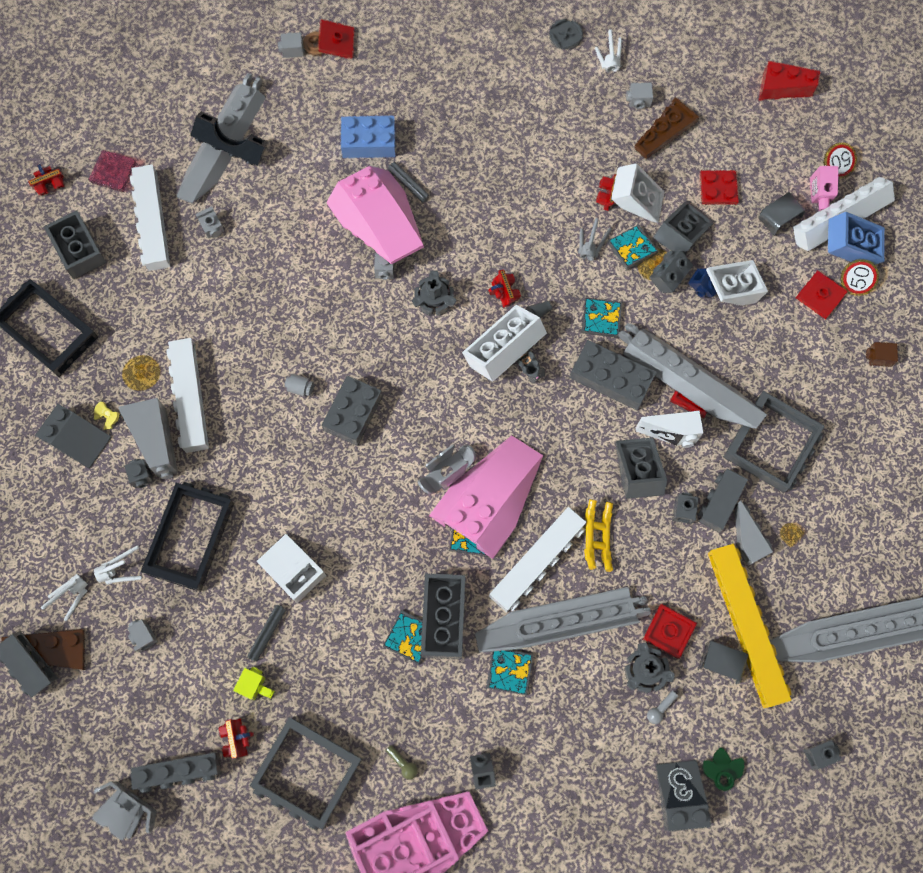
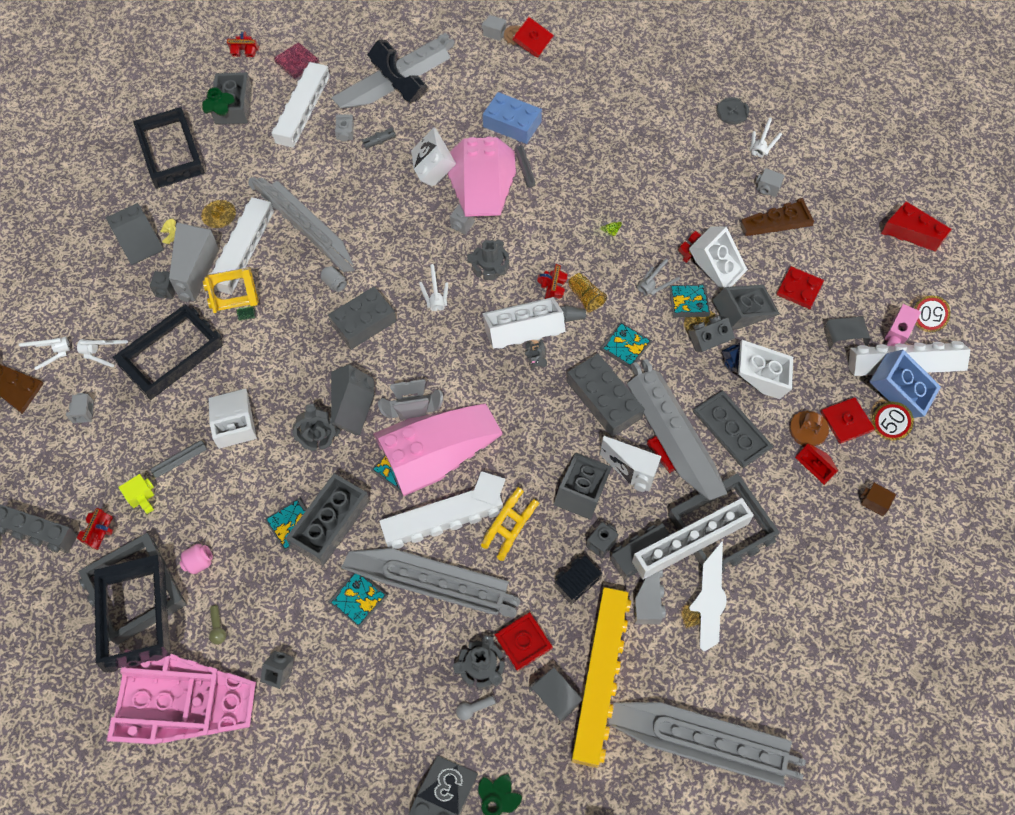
camera: 30 degrees right, 10 degrees down
(71, 259) = (217, 102): none -> dark green plate
(209, 462) = (220, 304): none -> yellow panel
(231, 339) = (304, 221): none -> light grey hinge
(237, 460) = (245, 313): none -> clear green hinge
(250, 218) = (378, 138): none -> dark grey pin
(297, 765) = (120, 573): none -> black door
(317, 216) = (432, 158): none -> white slope
(346, 715) = (196, 558): none -> bright pink head
(377, 538) = (315, 426): none -> dark grey piece
(394, 494) = (350, 398): none -> dark grey slope
(408, 358) = (436, 300): none -> white plant
(524, 207) = (611, 228): none -> clear neon green slope
(540, 283) = (587, 292): none -> clear yellow plant
(565, 514) = (488, 488): none -> white sticker
(684, 553) = (577, 579): none -> black brick
(733, 350) = (733, 429): none -> dark grey tile
(763, 471) = (692, 538): none -> white brick
(795, 318) = (809, 428): none -> dark orange tile
(799, 513) = (711, 600): none -> white sticker
(818, 346) = (817, 462): none -> red slope

